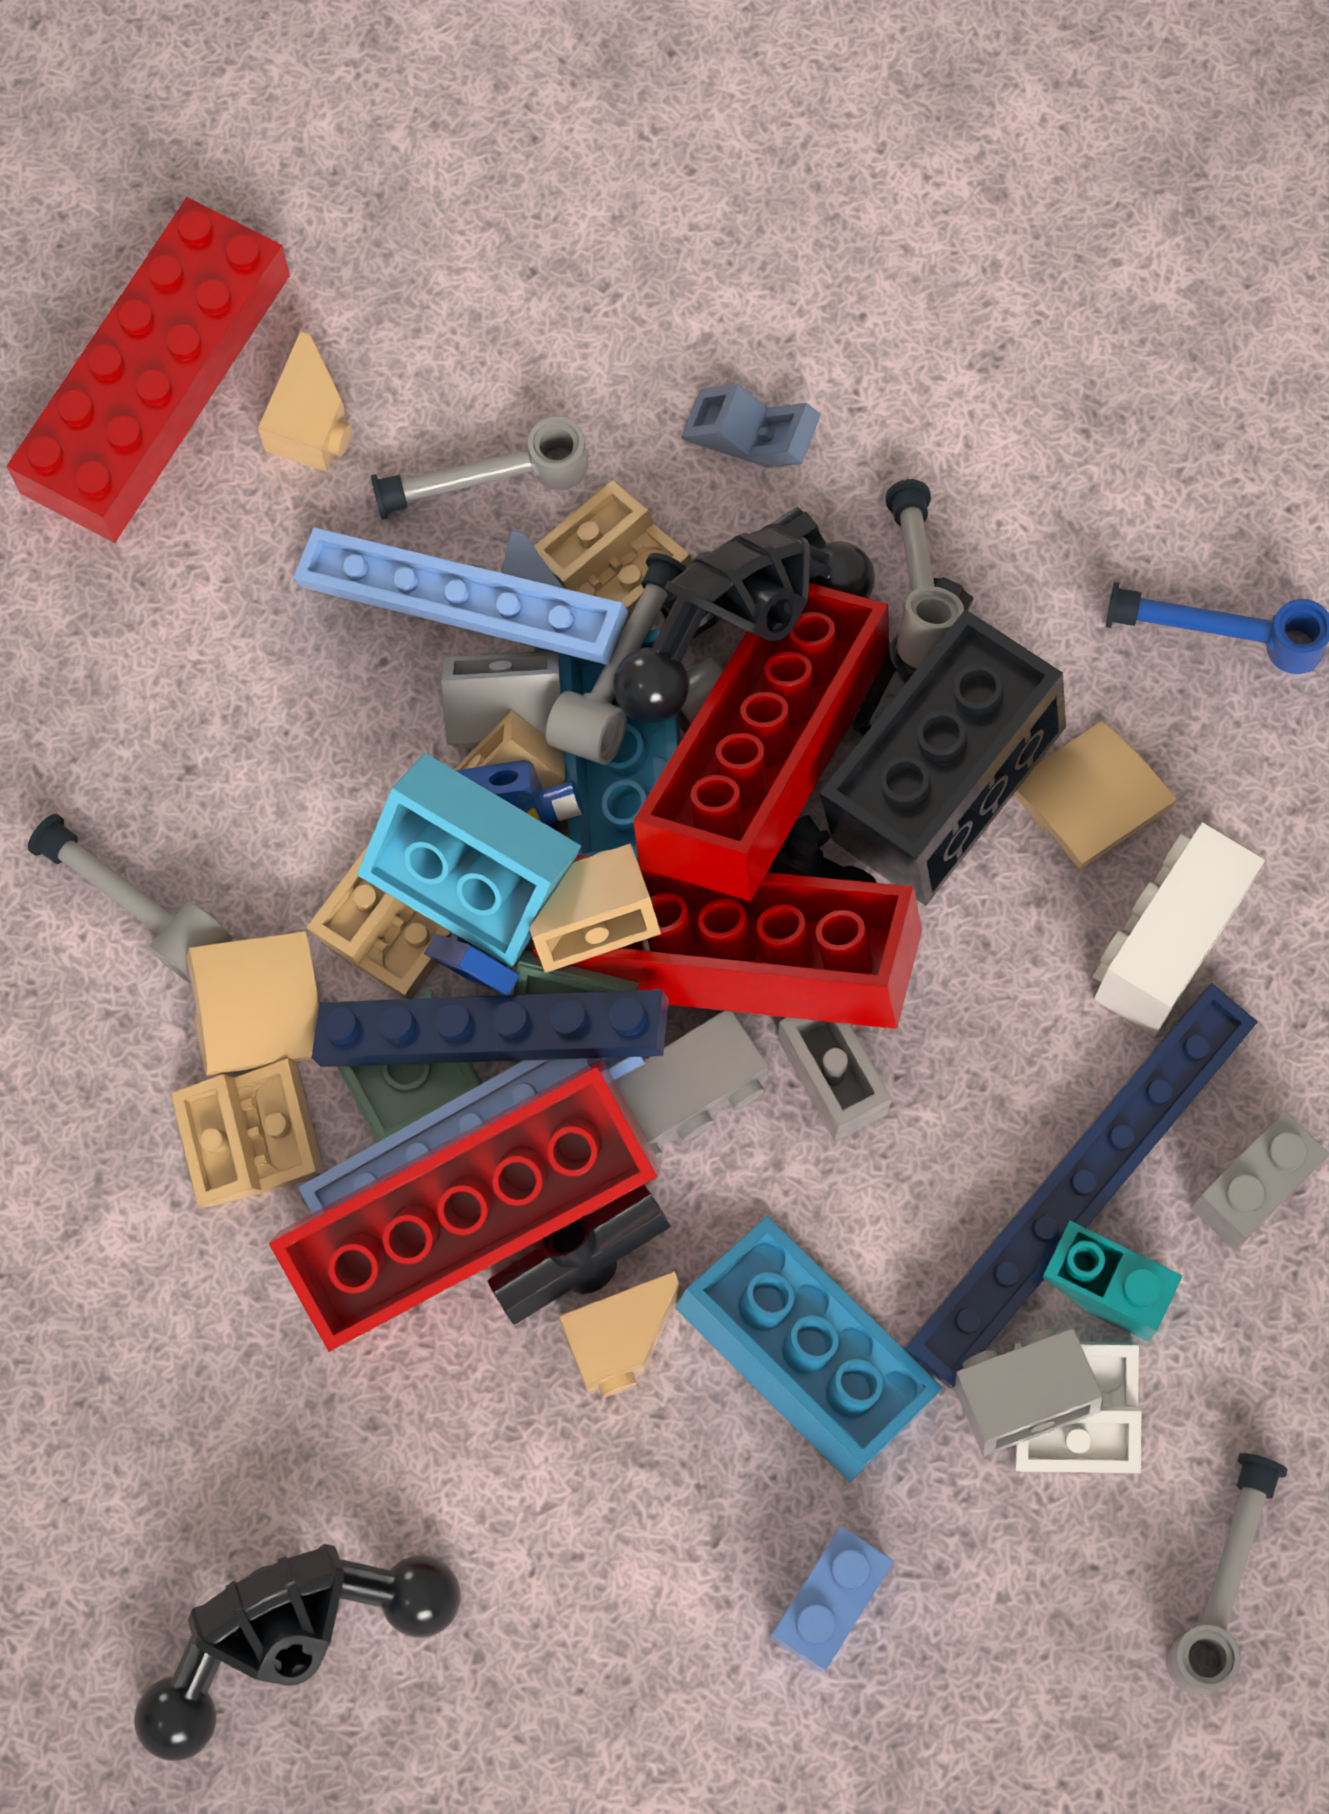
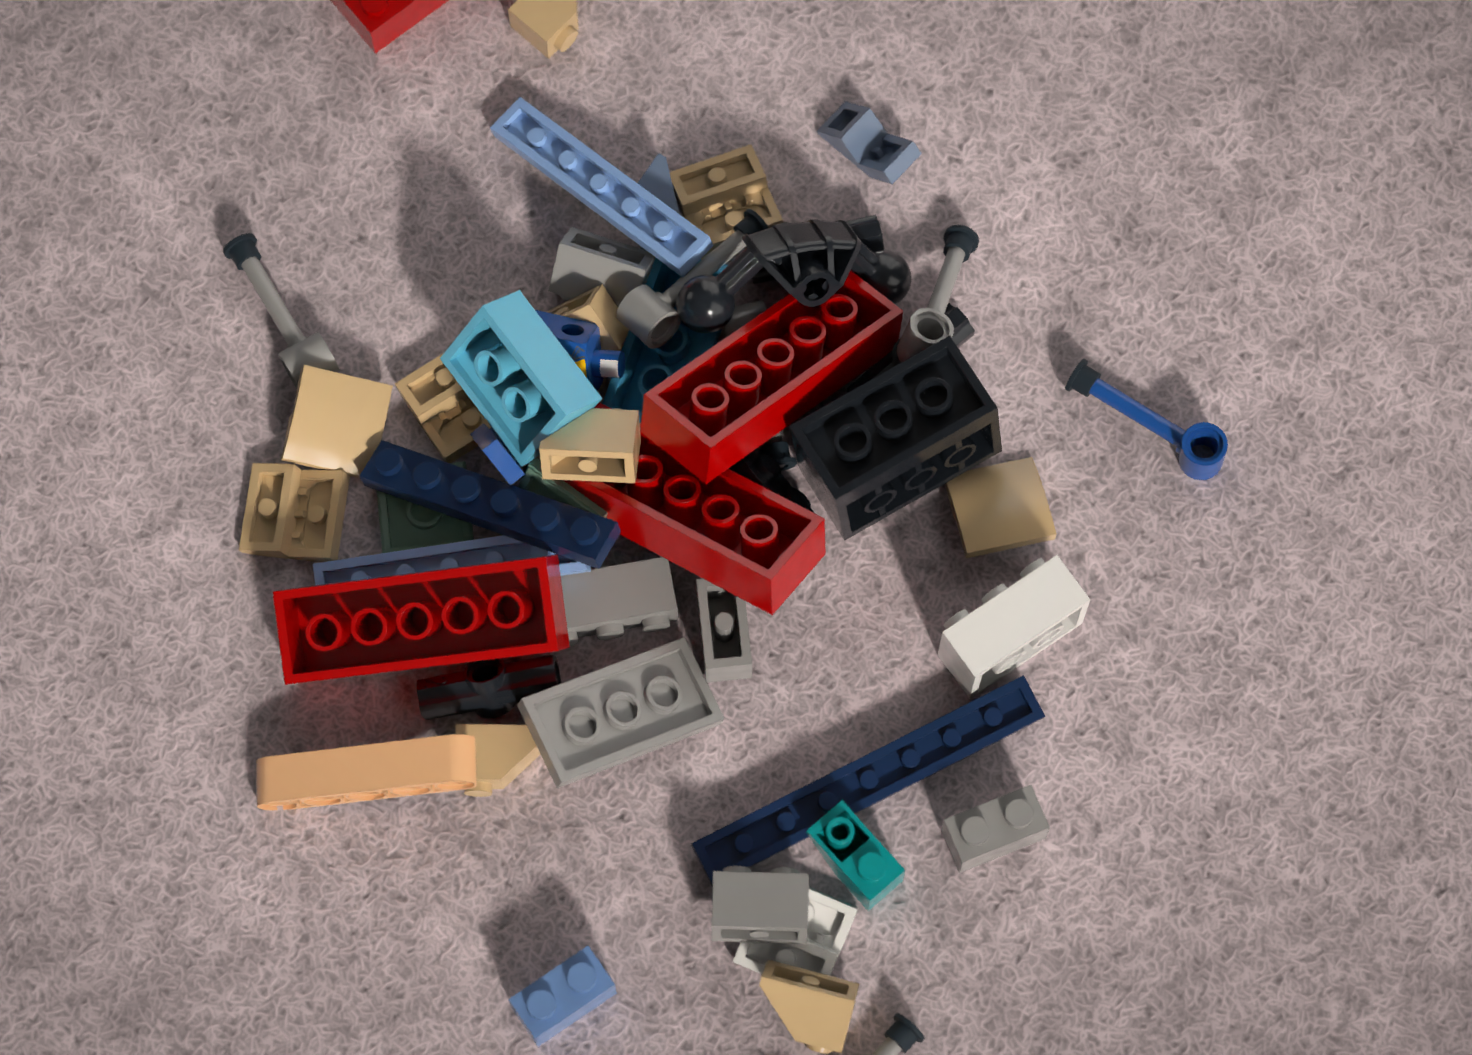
camera: 20 degrees right, 0 degrees up
(279, 1631) = (170, 859): black piece -> none
(475, 1420) = (366, 772): none -> light nougat beam
(547, 434) = (589, 94): light grey piece -> none
(753, 1221) = (620, 712): none -> light grey plate
(808, 1348) = (632, 837): dark azure slope -> none
(1140, 1485) = (810, 1004): none -> tan slope

